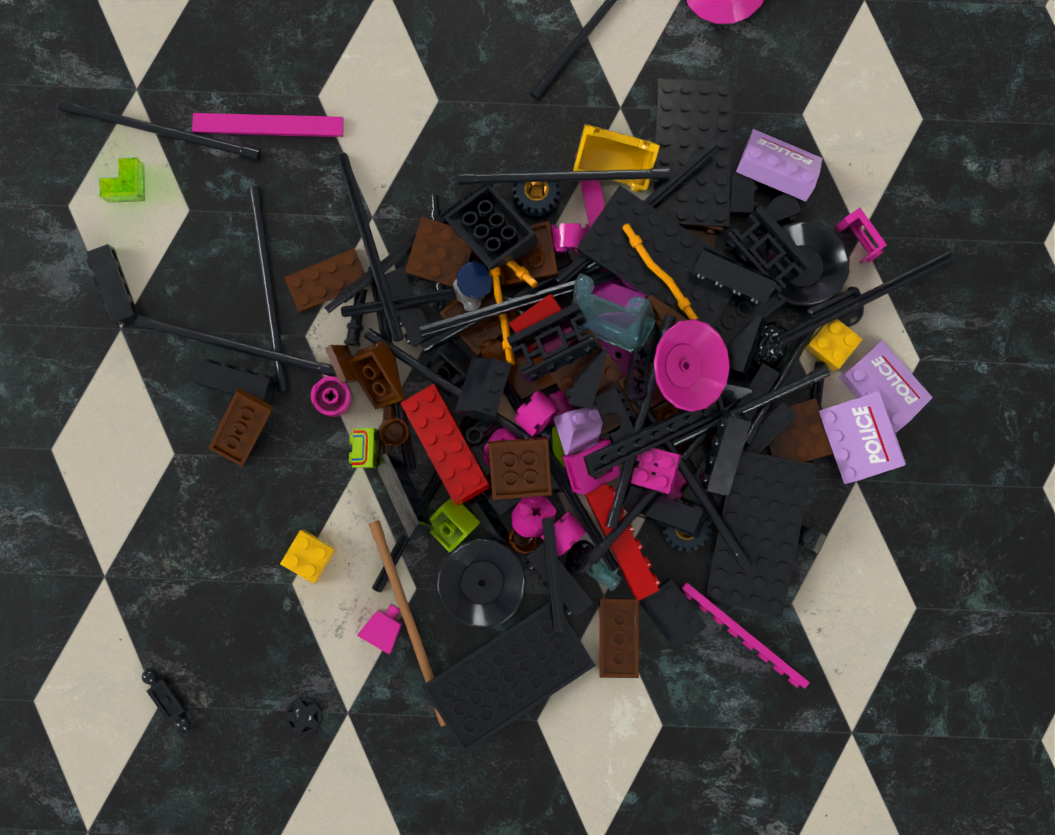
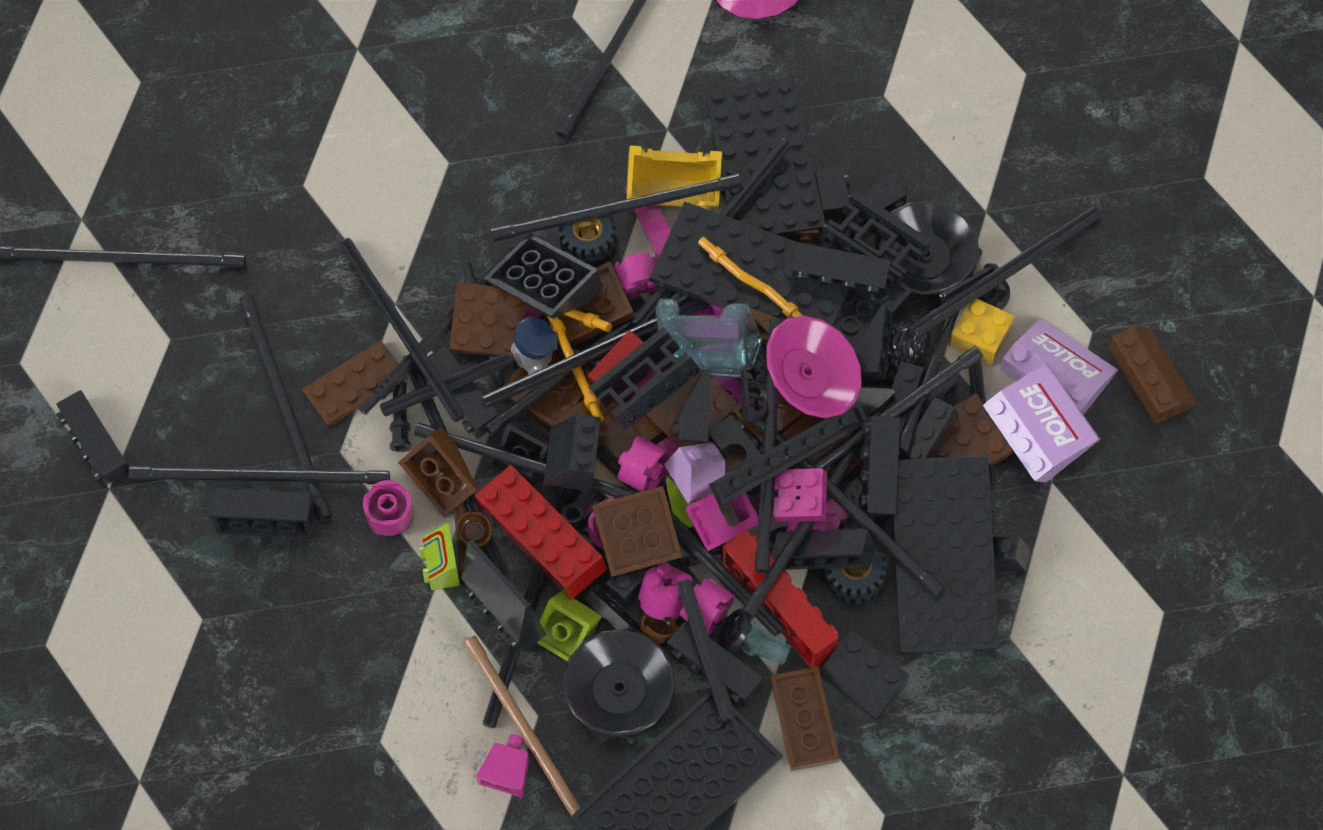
camera: 10 degrees left, 20 degrees down
(128, 185) = (92, 323): clear neon green brick -> none
(240, 427) = (284, 560): reddish brown plate -> none
(268, 125) = (249, 226): dark pink tile -> none
(308, 556) = (396, 699): yellow brick -> none
(338, 356) = (390, 461): reddish brown tile -> none
(749, 641) = (966, 686): dark pink plate -> none
(780, 165) = (868, 151): lavender slope -> none
(854, 222) = (971, 192): dark pink window -> none
(958, 408) = (1151, 373): none -> reddish brown slope

